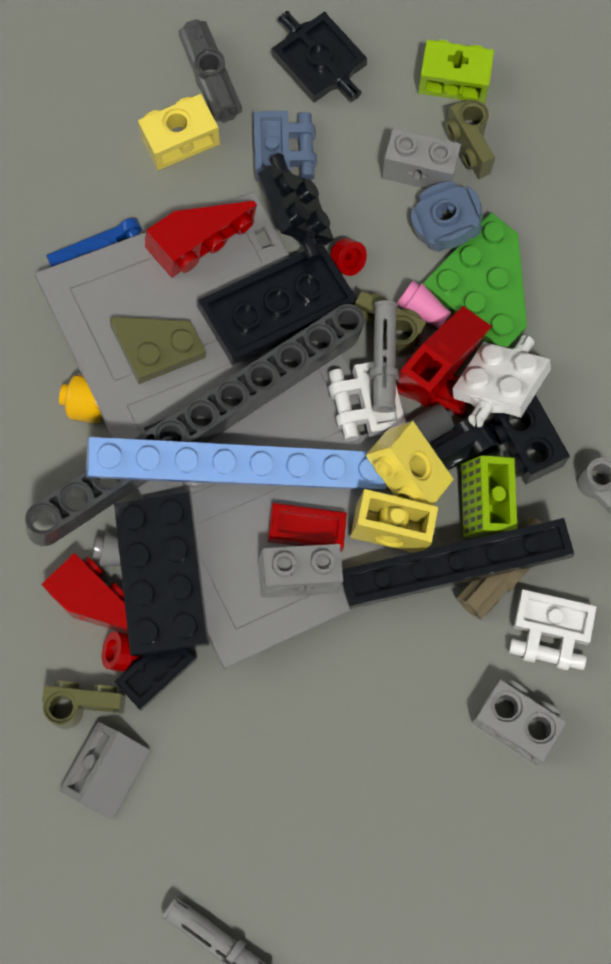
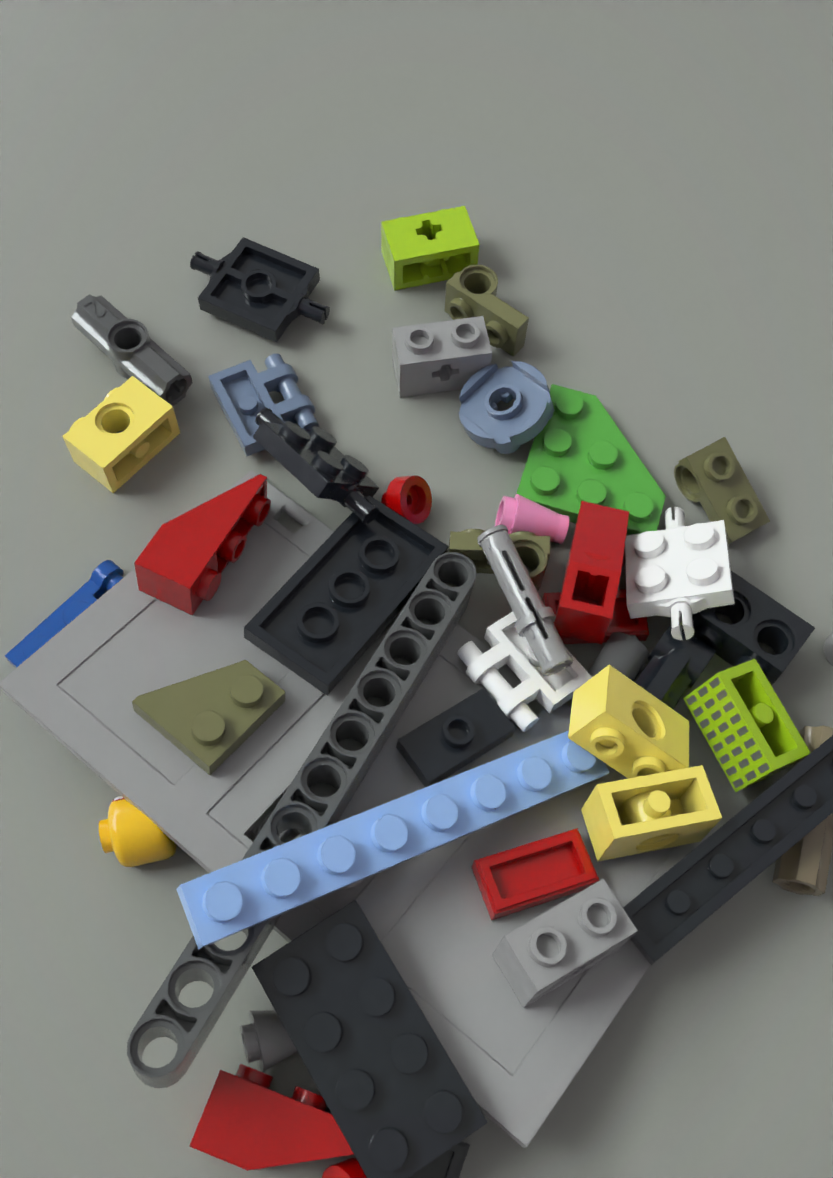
camera: 25 degrees left, 10 degrees down
(300, 425) = (455, 738): none -> black plate
(568, 338) = (722, 488): none -> olive plate

